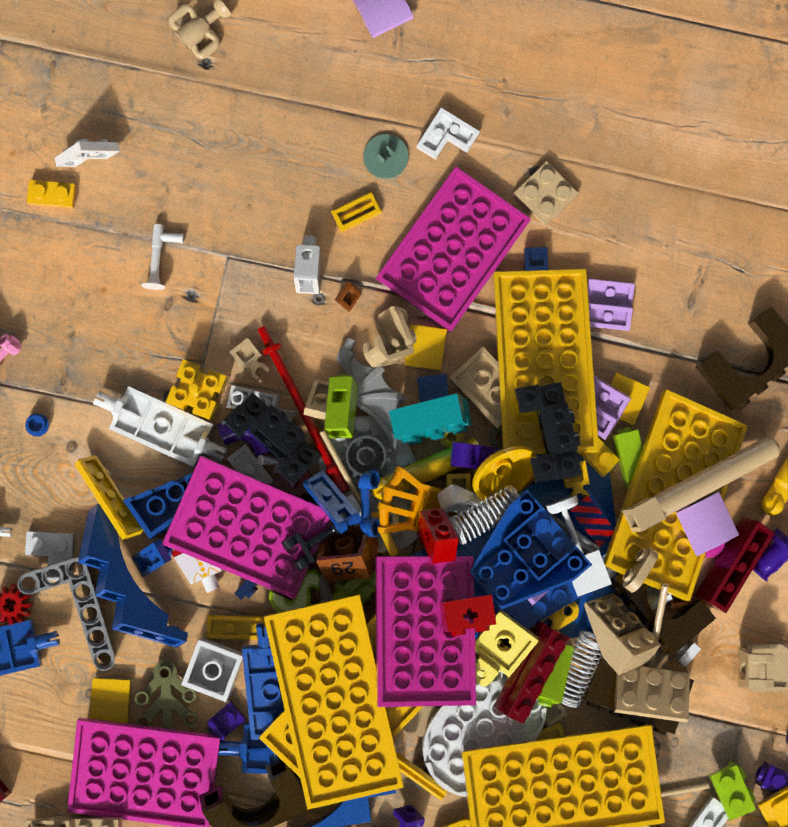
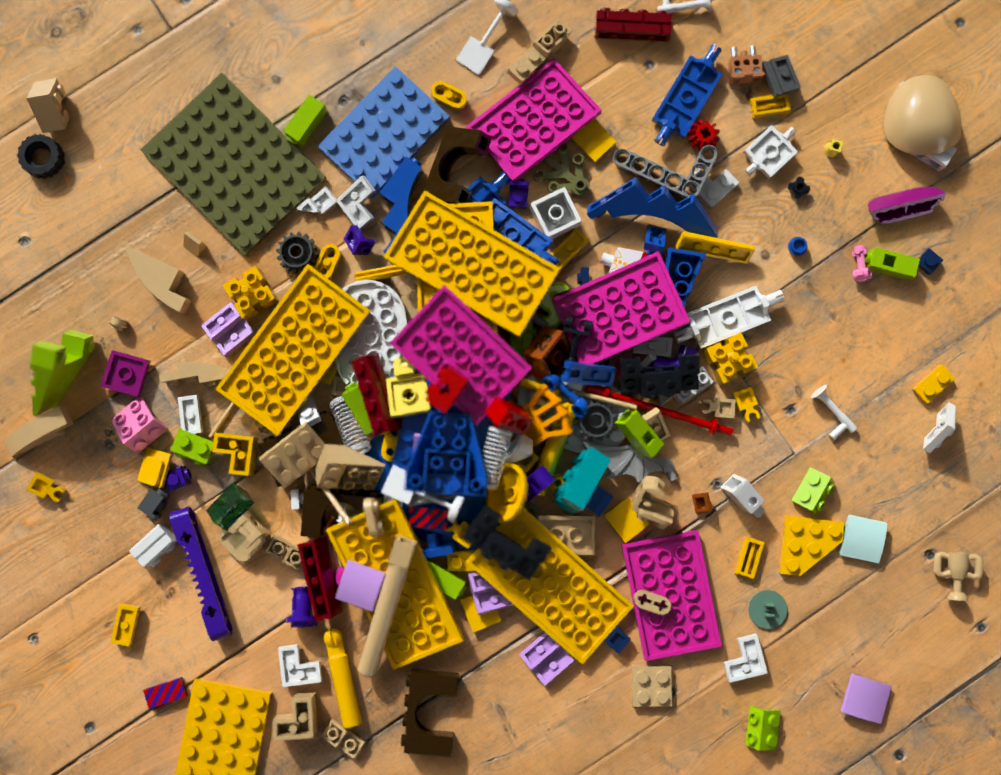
camera: 140 degrees right, 0 degrees up
(221, 341) = (745, 401): none -> yellow plate
(245, 210) = (814, 491): none -> bracket
(247, 131) = (863, 539): none -> light aqua slope
(295, 175) = (807, 542): none -> yellow plate
(480, 257) = (650, 606): none -> tan beam
(490, 68) = (762, 728): none -> lime bracket
(602, 717) = (309, 412): none -> white plate
(611, 489) = (436, 548): none -> blue tile
(692, 747) = (242, 451): none -> yellow brick
(741, 619) = (284, 551): none -> tan slope
(751, 706) = (229, 506): none -> clear green brick

